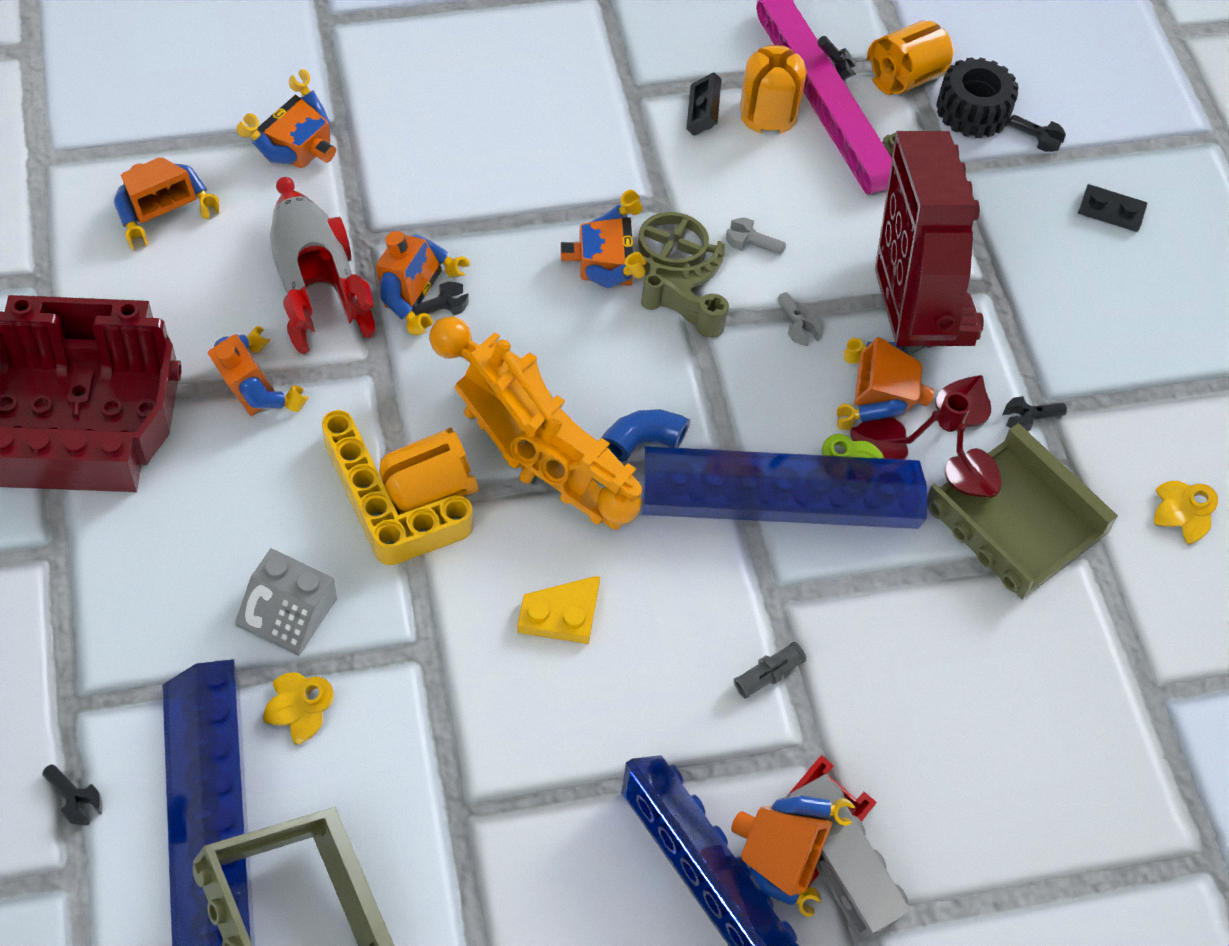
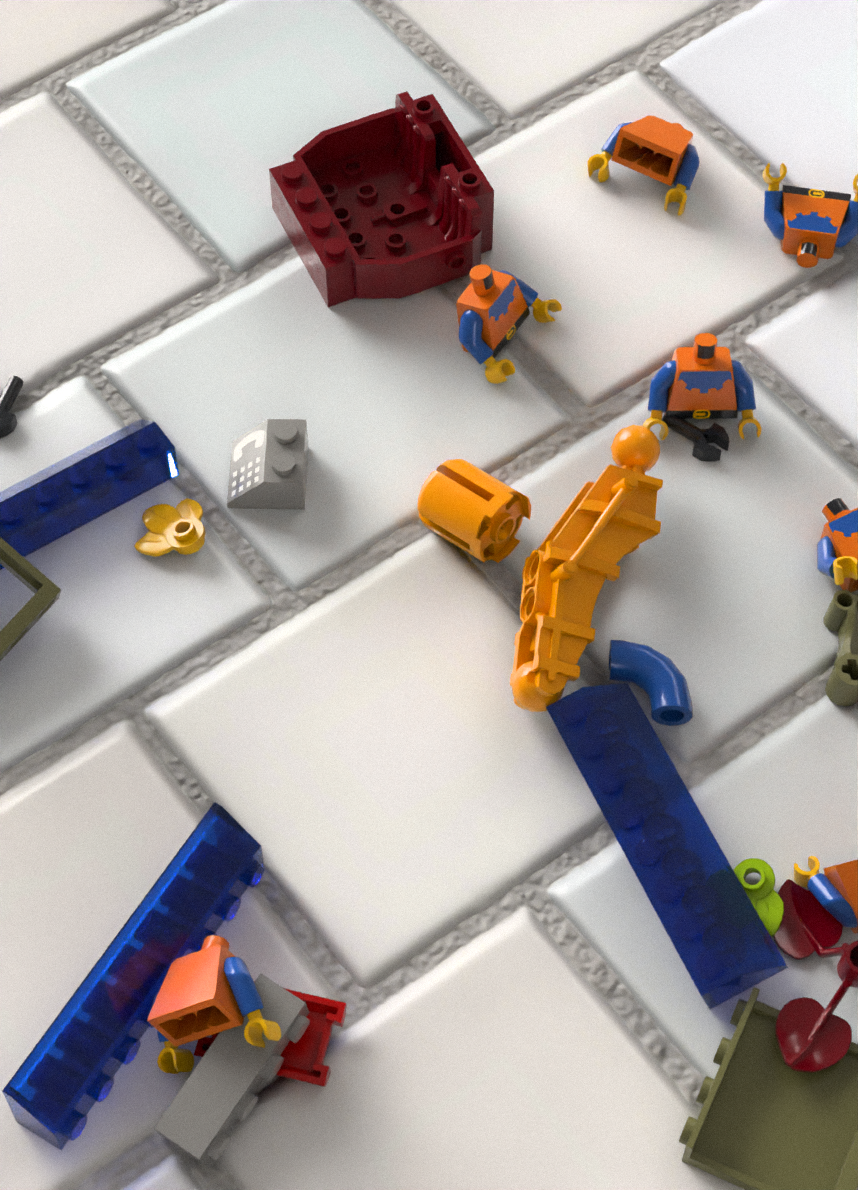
camera: 70 degrees right, 0 degrees up
(313, 251) = (662, 295): piece -> none
(376, 499) = (459, 437): yellow beam -> none
(561, 611) = (395, 699): yellow wing -> none
(788, 658) = (455, 930): dark grey pin -> none

